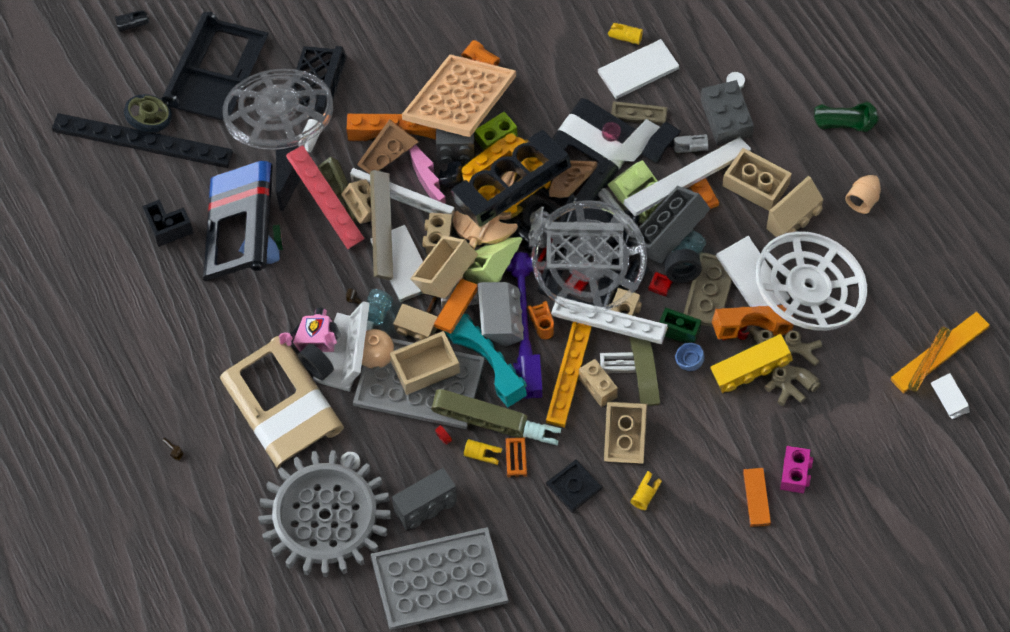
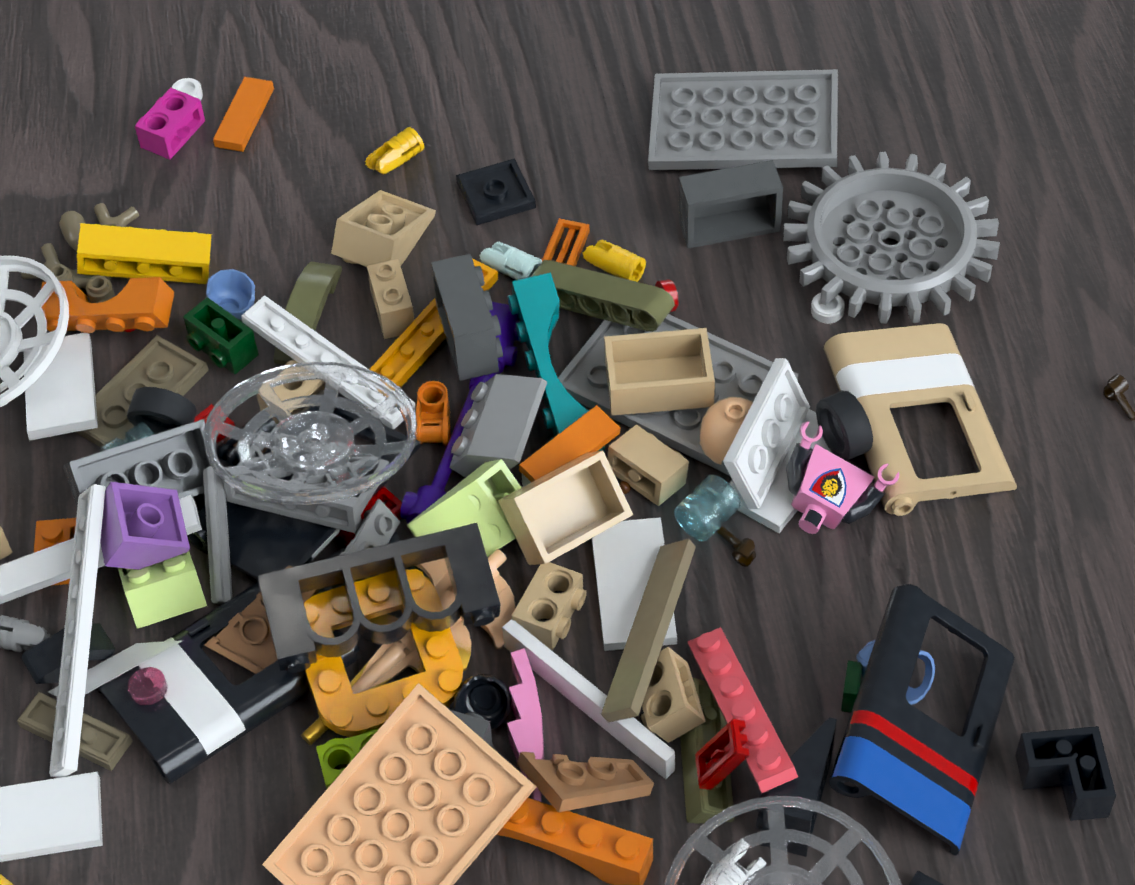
camera: 160 degrees left, 10 degrees down
(326, 169) = (723, 760): none -> red tile
(540, 353) = (466, 316): none -> dark grey piece
(617, 366) = (346, 338): white tile -> none
(649, 185) = (141, 526): none -> medium lavender slope
(654, 136) = (77, 632): none -> white tile
(802, 504) = (189, 86): none -> white tile

